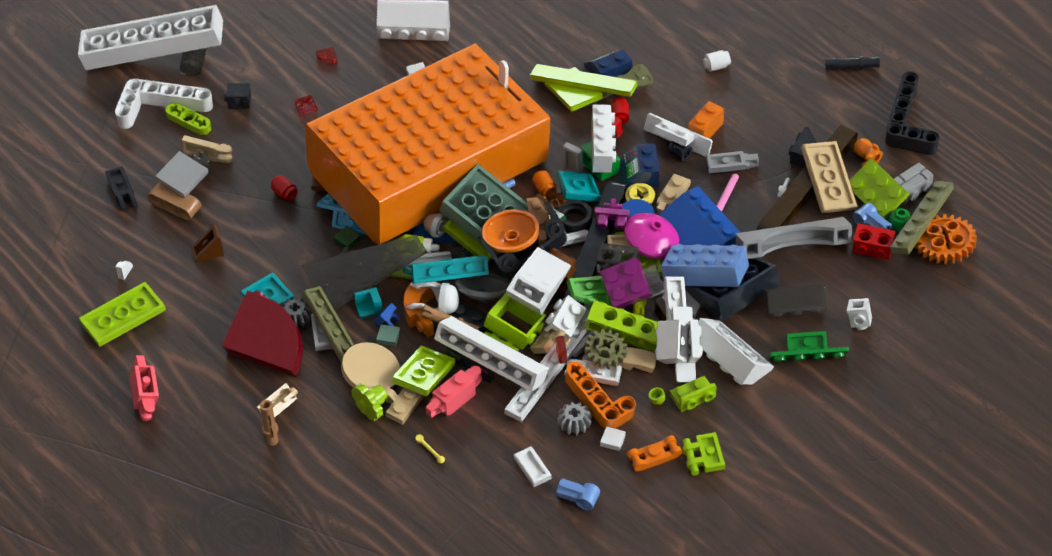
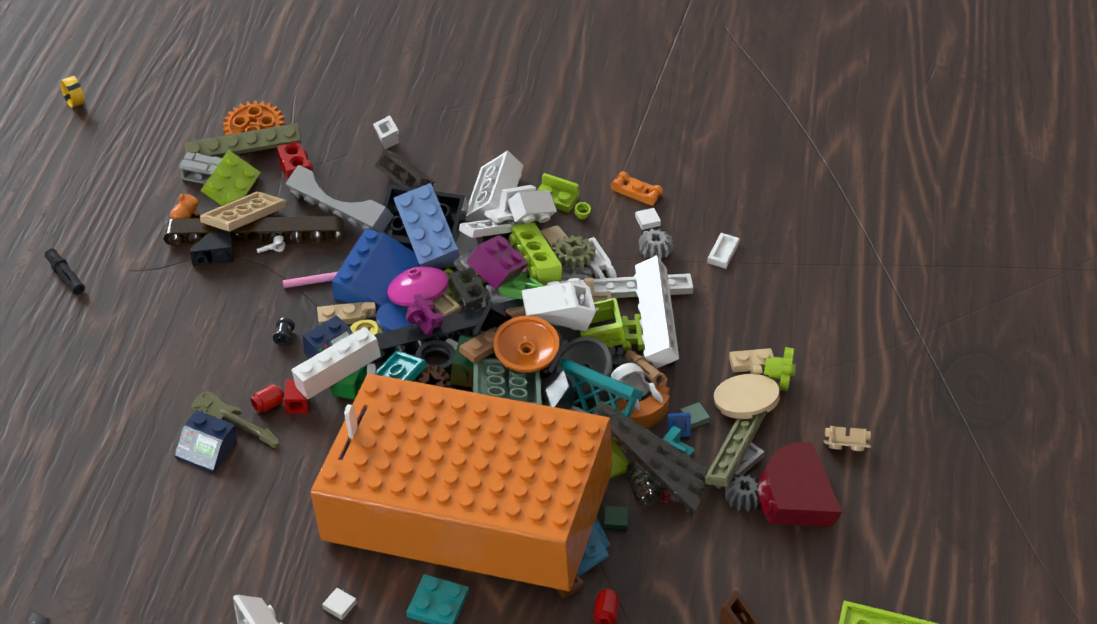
camera: 130 degrees left, 5 degrees down
(143, 387) = (944, 544): coral hinge -> none
(270, 431) = (884, 414): medium nougat pin -> none
(272, 288) = (744, 530): teal plate -> none
(420, 439) = (772, 332): light yellow hinge -> none
(423, 370) = (712, 357): lime plate -> none
(454, 392) = (711, 326): coral hinge -> none
(461, 241) = (557, 391): none -> black slope
(561, 349) = (603, 275): clear red tile -> none
(574, 97) = (263, 451): lime tile -> none
(578, 377) = (628, 226): orange beam -> none
(583, 80) = (251, 441): tile -> none
(583, 495) = (720, 204): medium blue piece -> none
(678, 134) = (270, 339): white bracket -> none
(707, 120) = (234, 327): orange brick -> none
(710, 453) = (605, 158): lime plate -> none
(716, 60) = (135, 363): white brick -> none
(731, 161) = (271, 291): light grey hinge -> none
(807, 345) = (449, 150): green bracket -> none
(869, 216) = (267, 177): medium blue piece -> none
(898, 132) = (114, 209): black beam -> none
(898, 219) = (254, 158): green cone -> none

